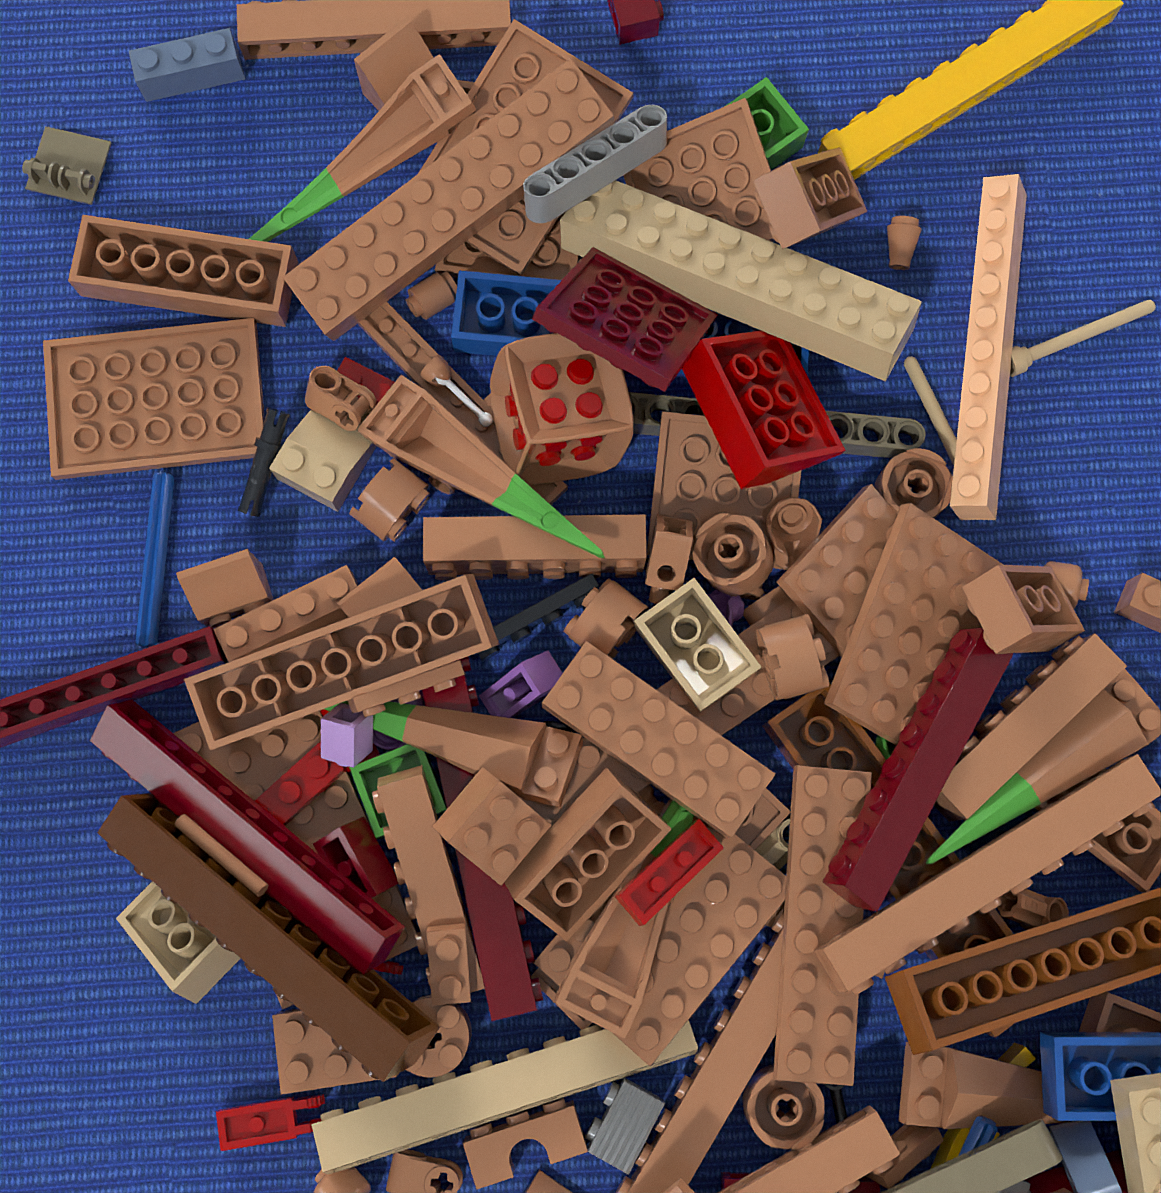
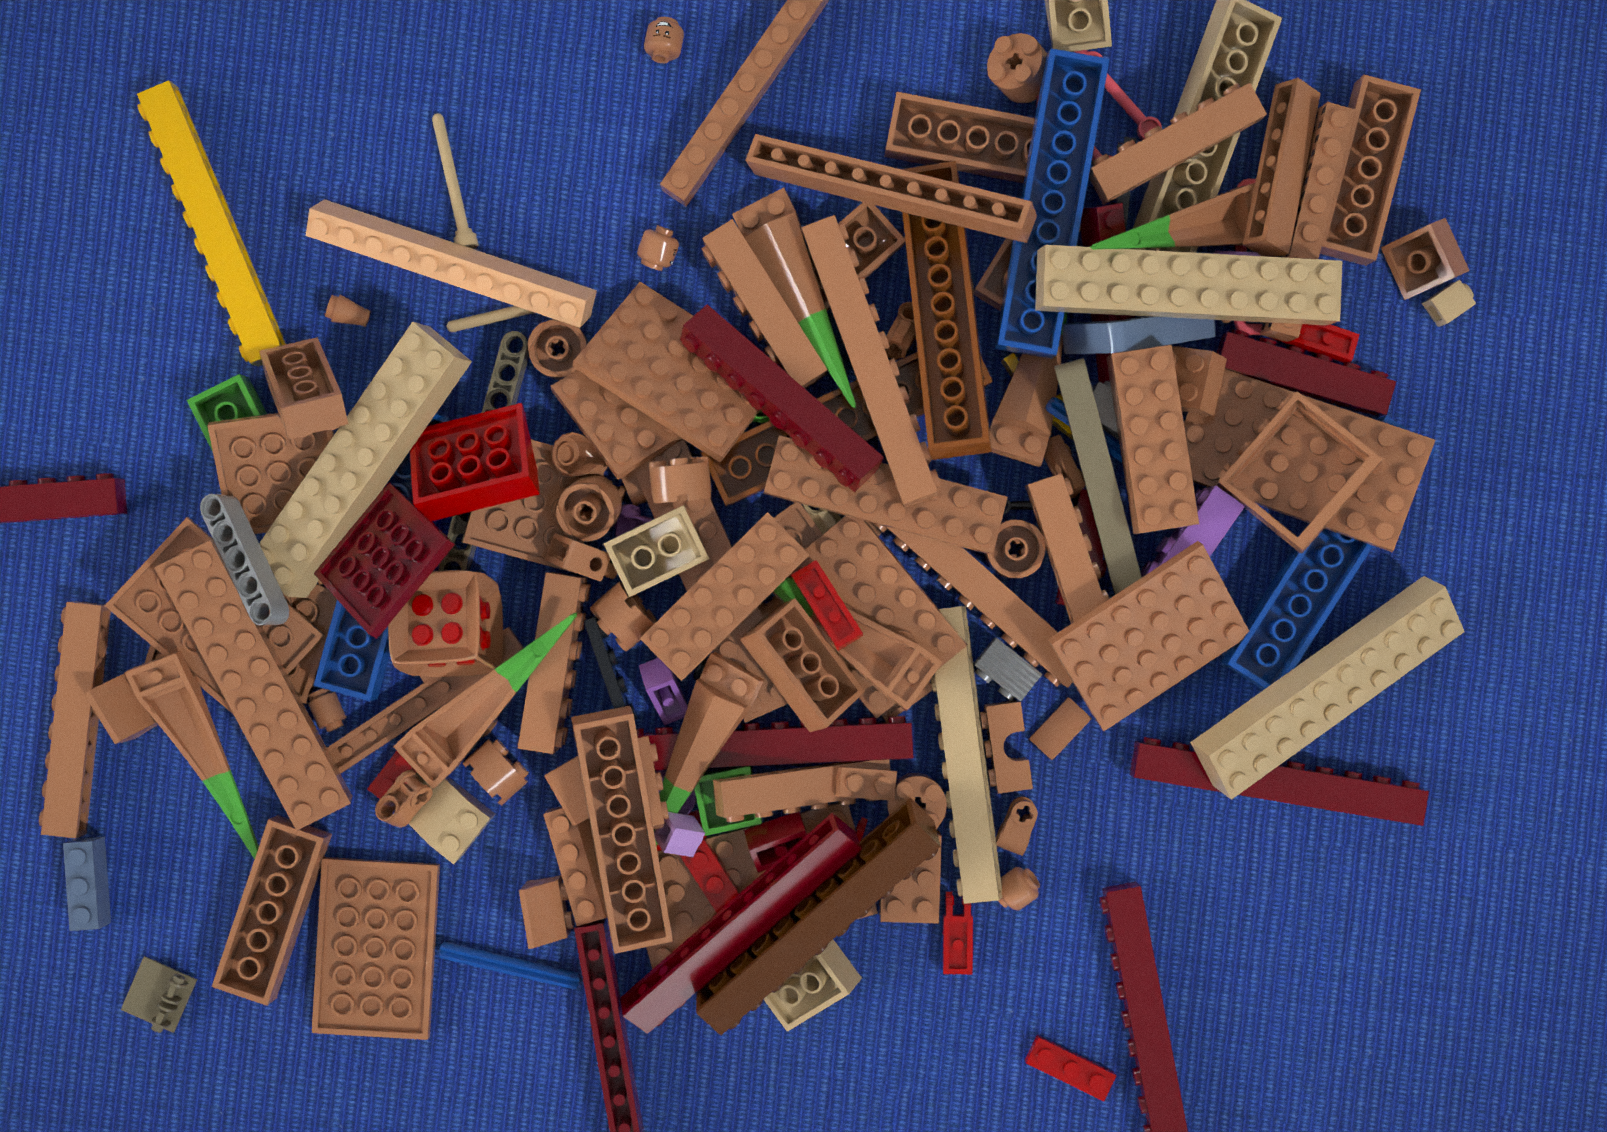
camera: 80 degrees left, 10 degrees up
(221, 855) = (754, 943): nougat bar -> none
(267, 448) = (437, 863): black pin -> none
(438, 373) = (397, 716): hinge -> none
(491, 826) = (768, 735): nougat brick -> none
(1022, 609) = (673, 290): nougat brick -> none

